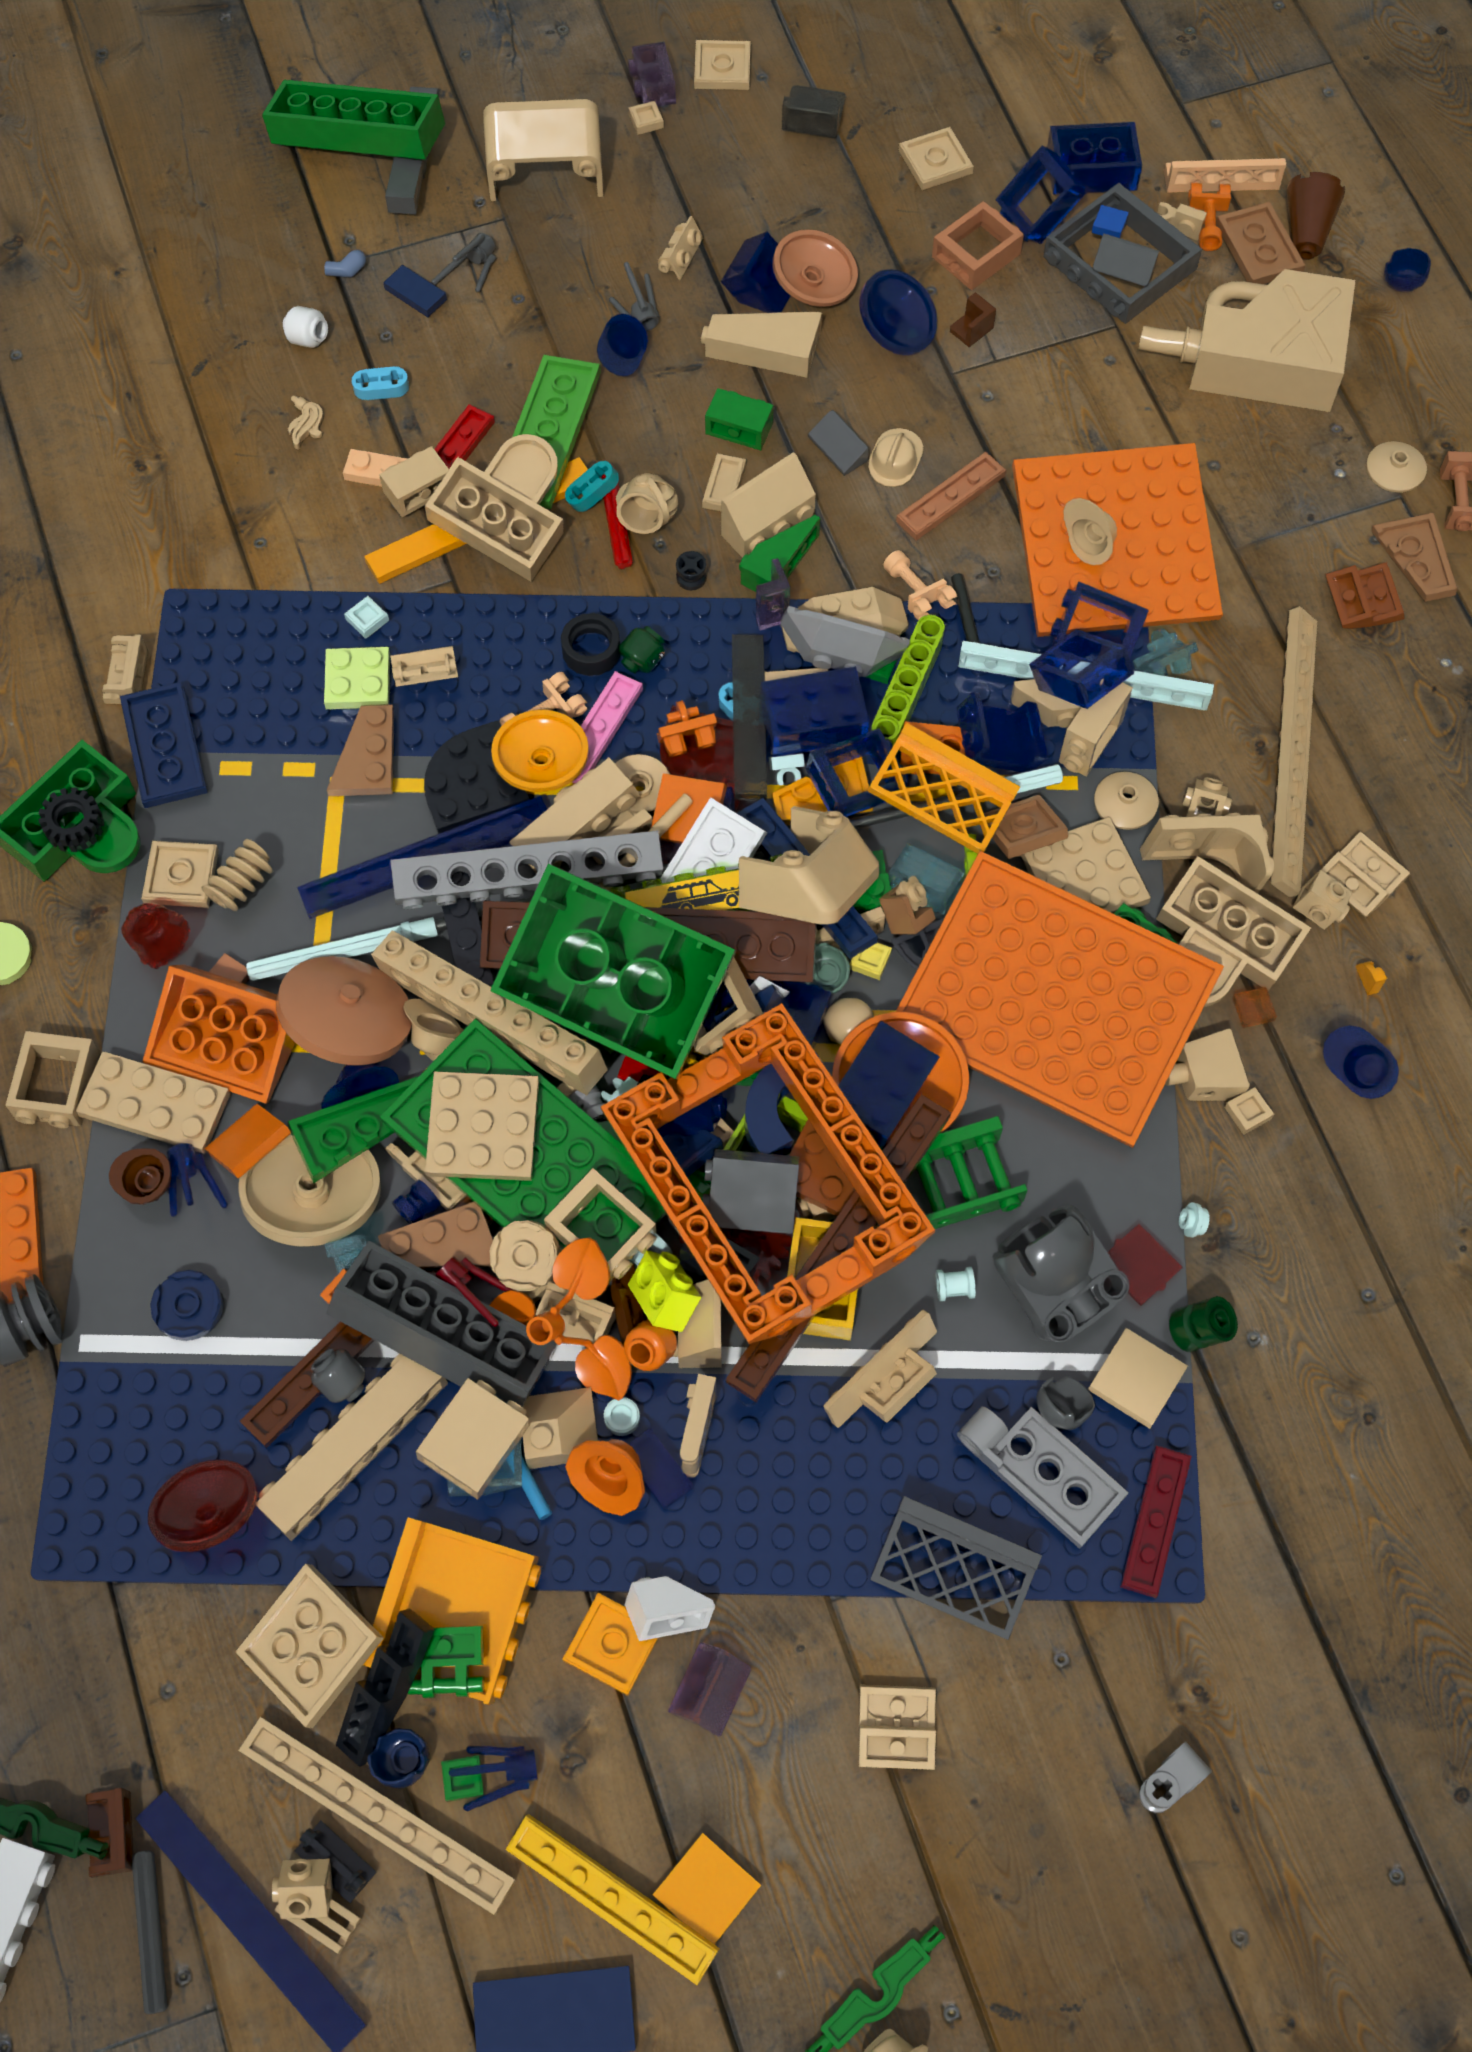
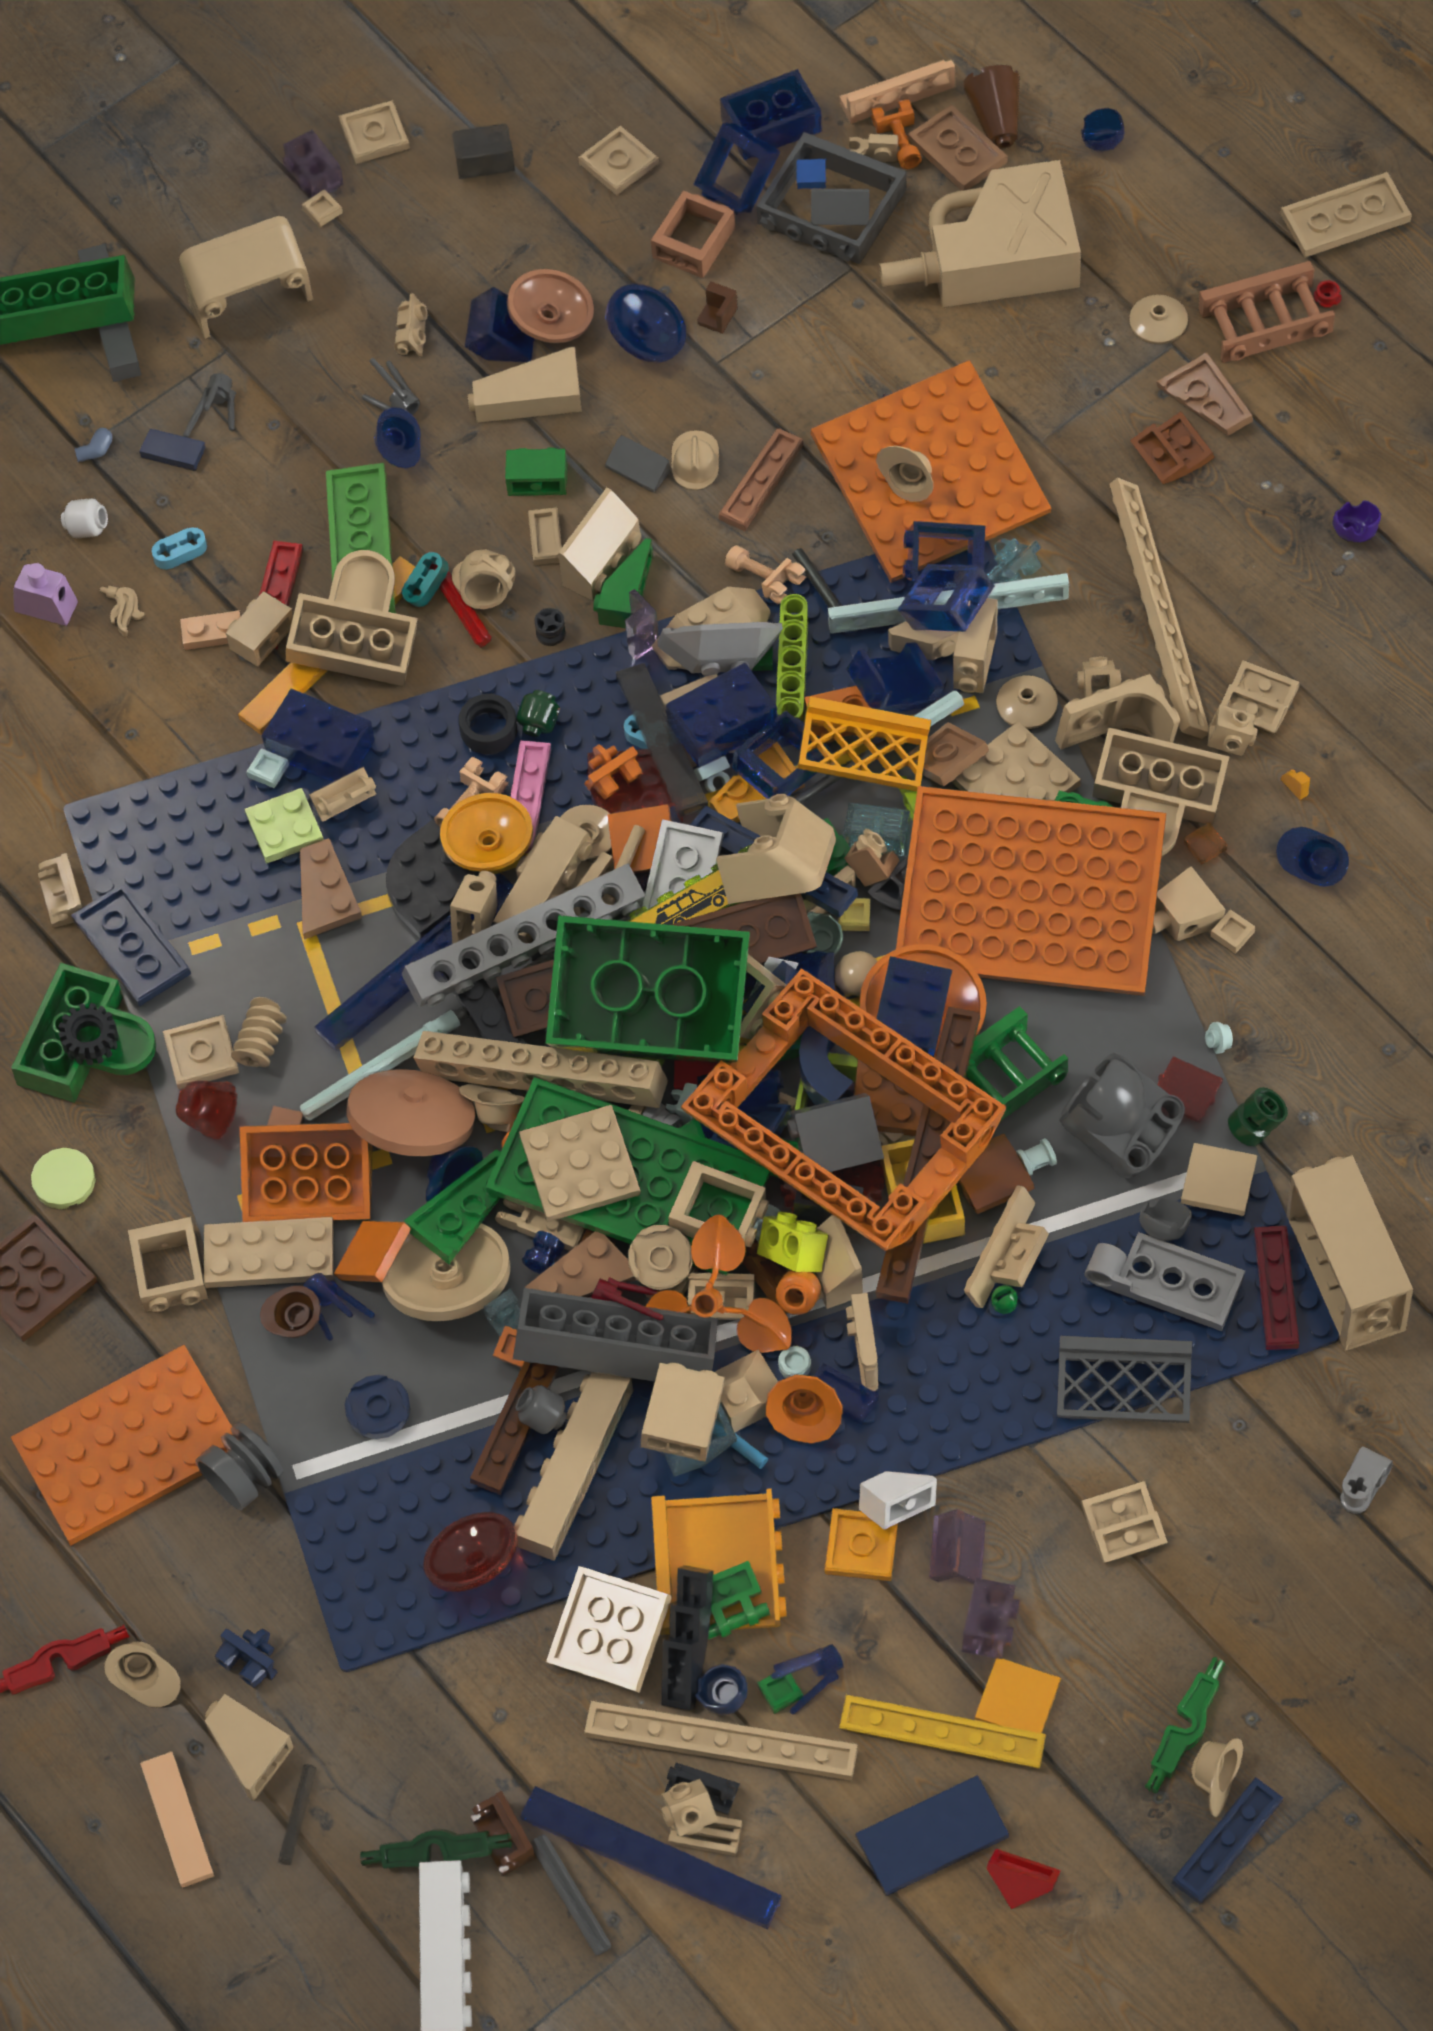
camera: 15 degrees left, 5 degrees down
(228, 379) = (44, 595): none -> lavender torso
(423, 602) = (318, 736): none -> clear blue brick
(495, 819) = (475, 896): none -> tan torso
(705, 1785) = (987, 1618): none -> brick
(867, 1433) = (1007, 1303): none -> green hinge
(906, 1289) = (994, 1176): none -> dark orange slope
(1248, 1516) = (1349, 1252): none -> tan container

